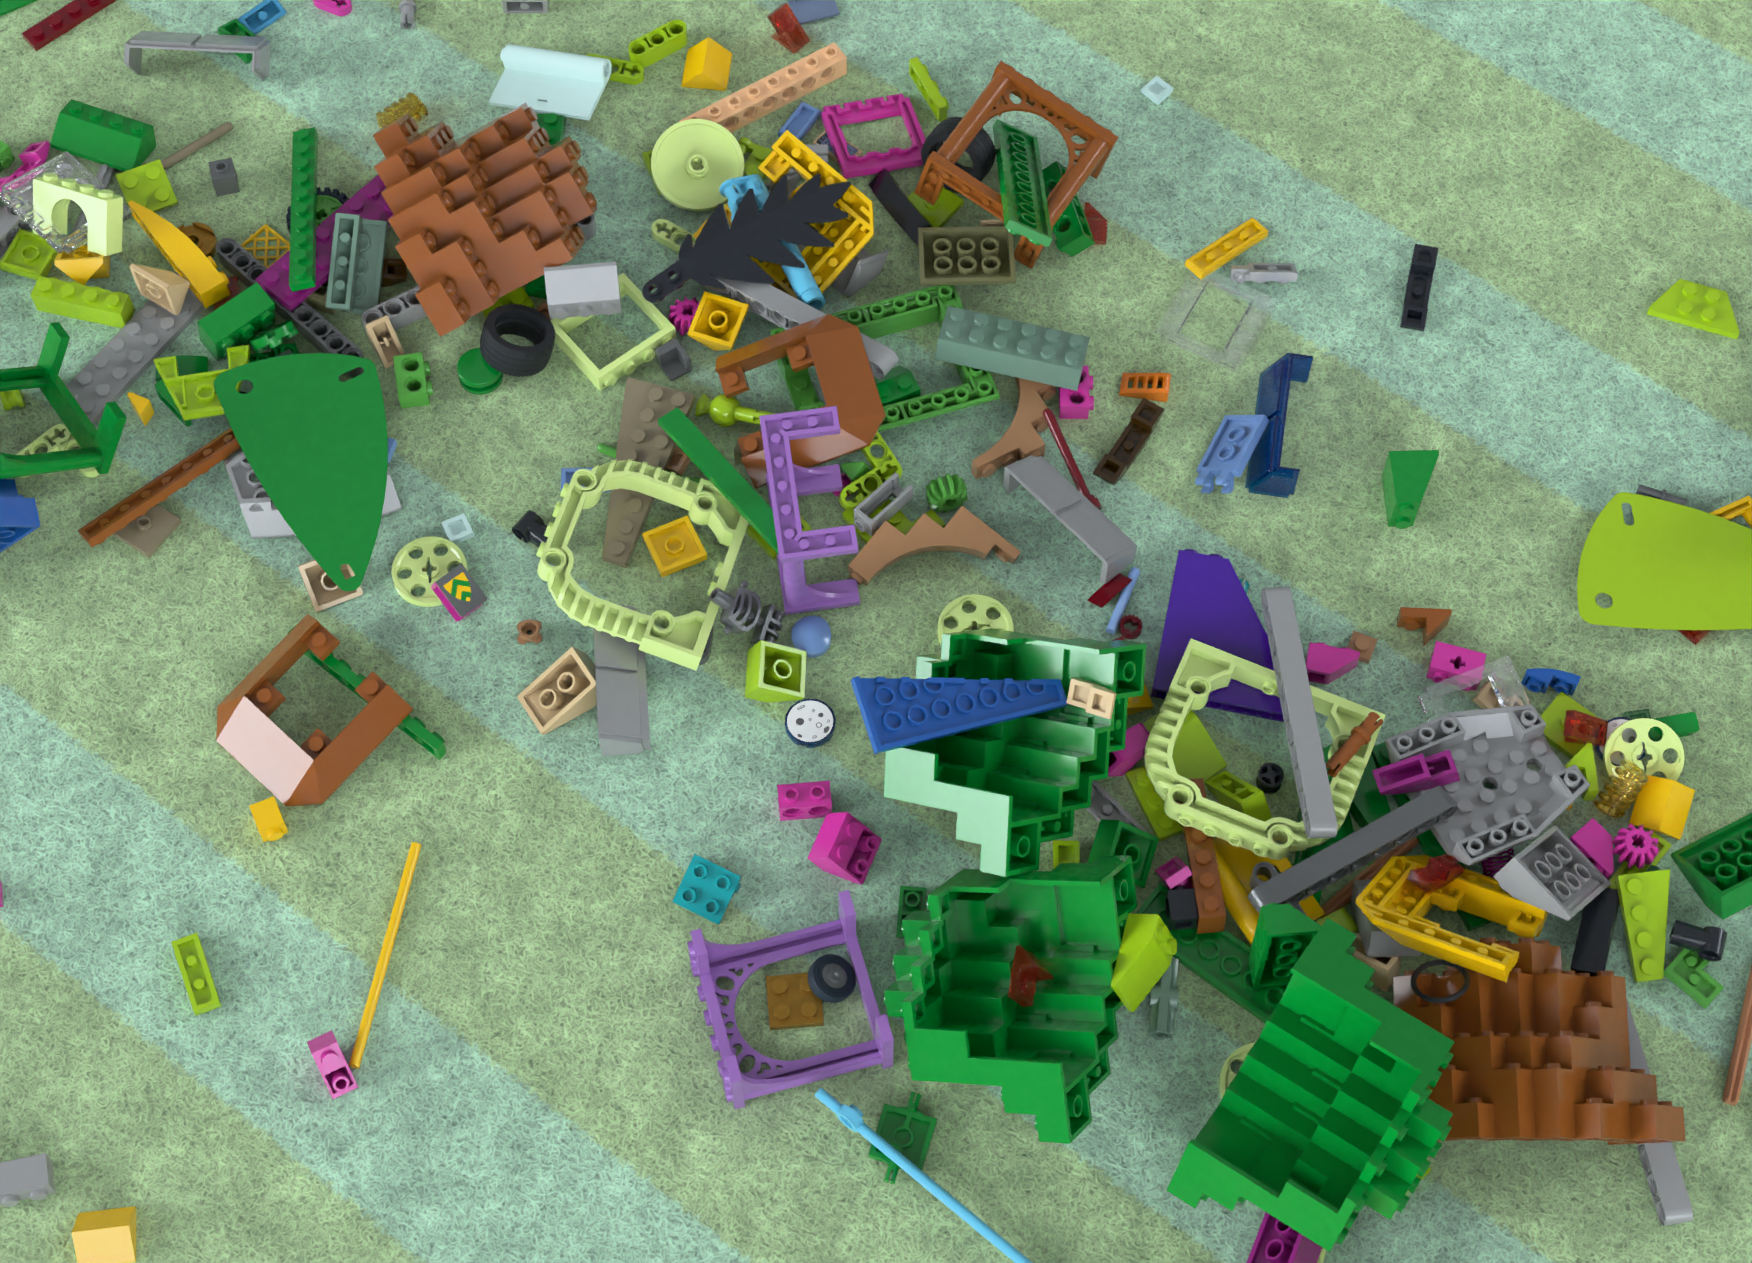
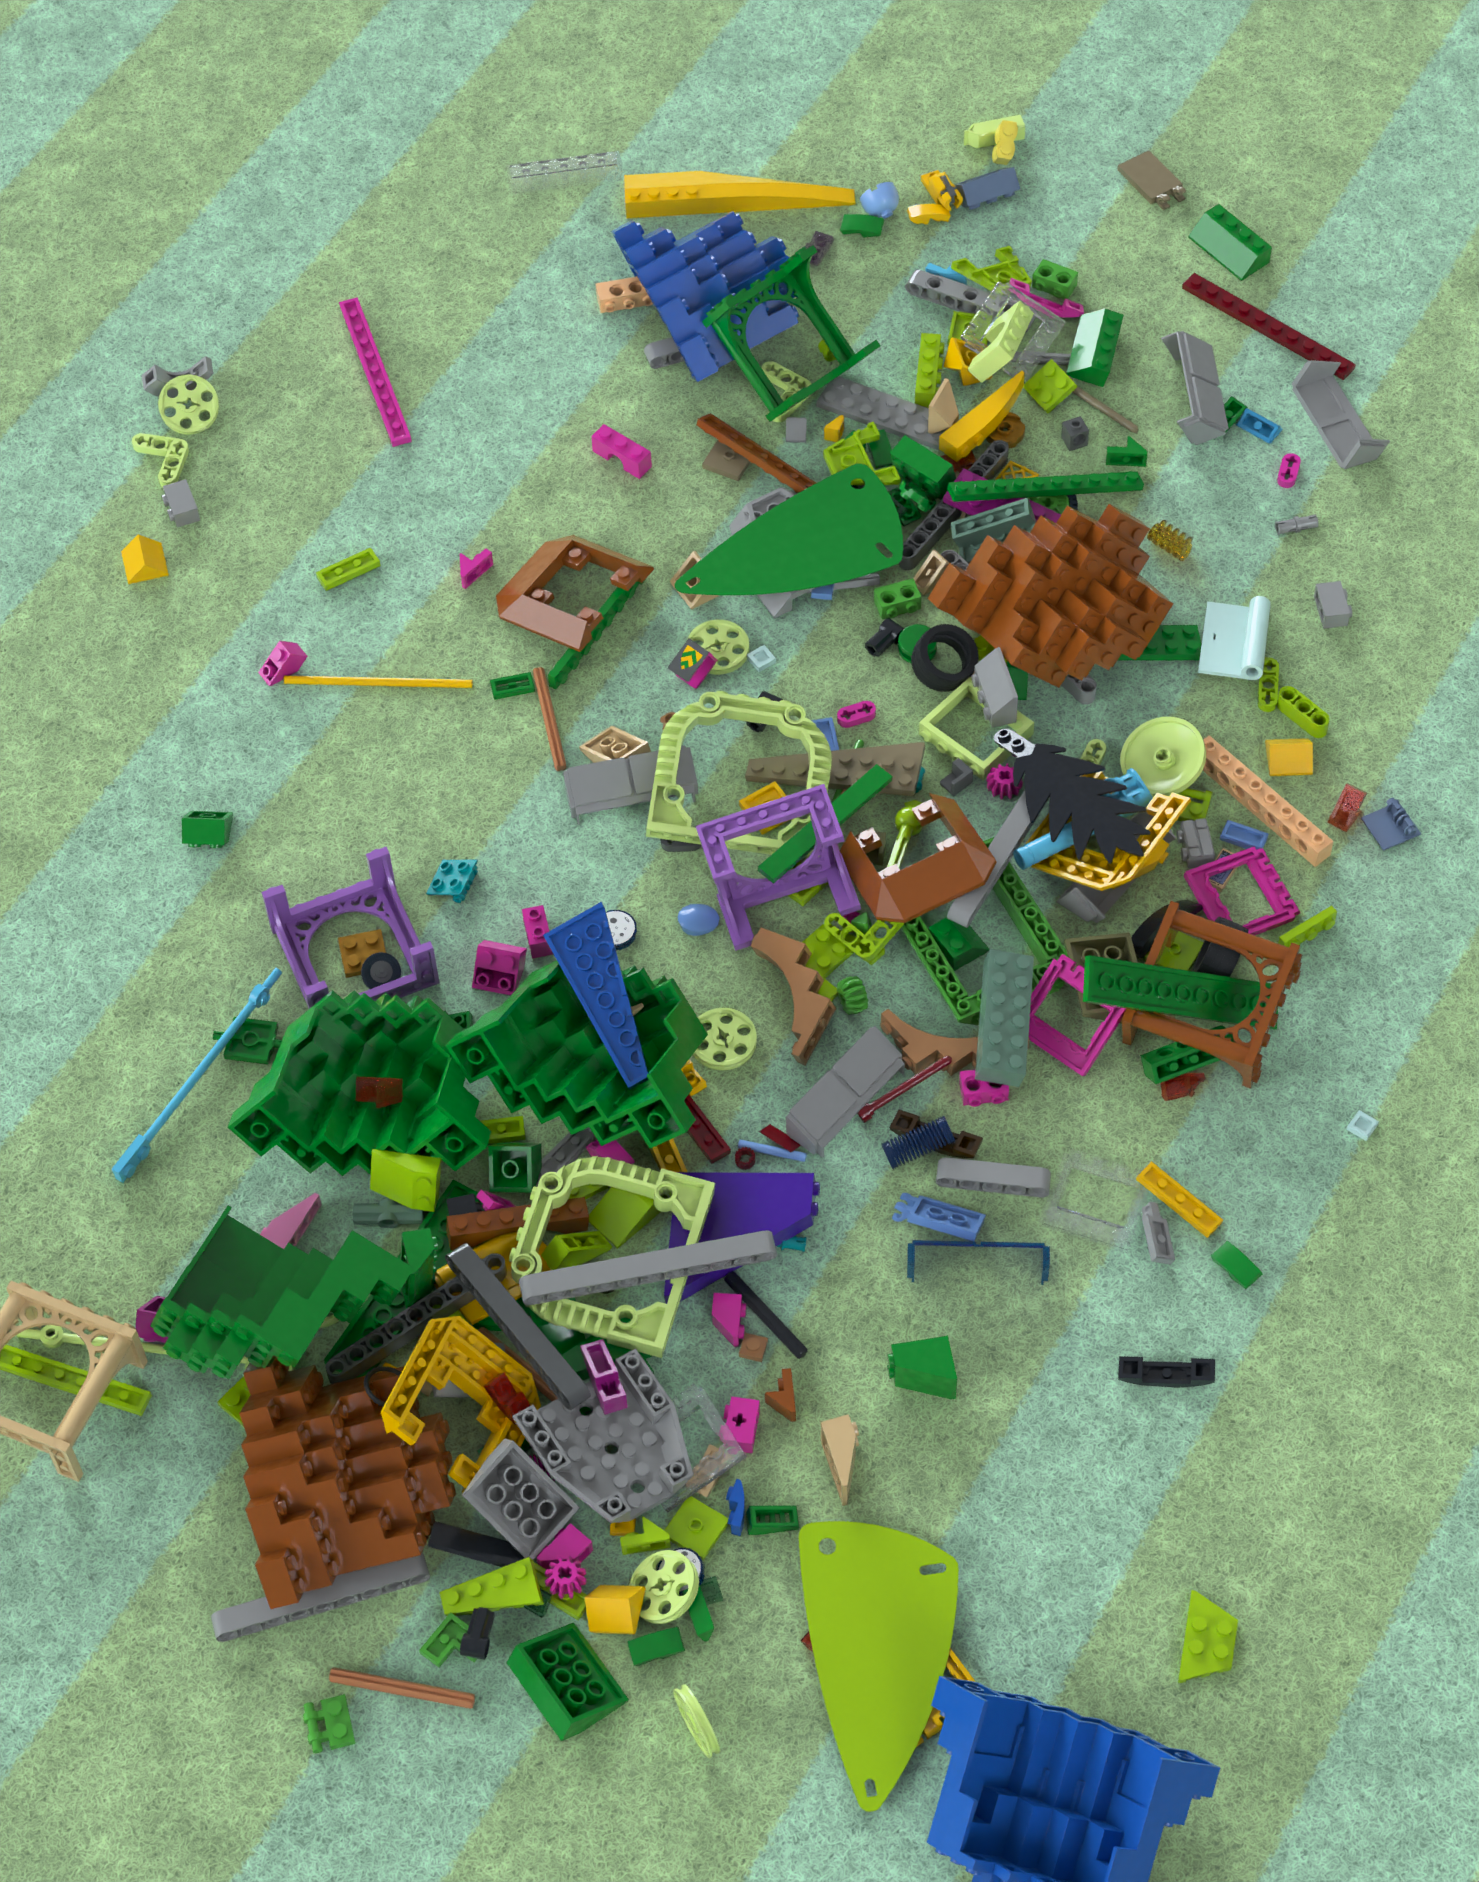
camera: 85 degrees right, 5 degrees down
(87, 646) = (633, 456): none -> dark pink arch
(128, 451) = (796, 429): none -> light grey slope
(239, 827) = (473, 569): none -> dark pink slope
(267, 133) = (1131, 455): none -> green slope
(269, 819) = (478, 585): yellow brick -> none
(431, 819) = (512, 688): none -> green tile
(458, 395) = (884, 638): none -> black piece
(491, 762) = (549, 719): none -> nougat axle
(557, 445) = (856, 714): none -> dark pink beam
(573, 1172) = (206, 828): none -> green slope
(717, 321) = (994, 796): yellow slope -> none
(746, 605) = (701, 868): dark grey torso -> none
(775, 673) = (653, 894): lime slope -> none
(876, 499) = (817, 931): light grey window -> none
(998, 257) = (1054, 1041): none -> dark pink hinge
(1092, 697) = (628, 1095): tan slope -> none
(1134, 427) = (913, 1143): none -> dark blue piece
(1153, 393) = (1006, 1159): orange slope -> none
(1176, 1111) = (292, 1223): none -> bright pink slope
(1183, 401) = (993, 1177): none -> light grey beam
(1305, 213) = (1238, 1265): none -> green slope
(1338, 621) = (766, 1315): none -> black axle
(1359, 736) = (628, 1320): dark orange pin -> none
(1505, 573) = (839, 1445): none -> tan slope
(1561, 635) = (765, 1528): none -> green slope
(1584, 729) = (680, 1527): clear red slope -> none
(1623, 791) = (624, 1565): clear yellow piece -> none
(1651, 492) = (963, 1605): dark grey axle -> none
(1704, 773) = (656, 1645): none -> green slope

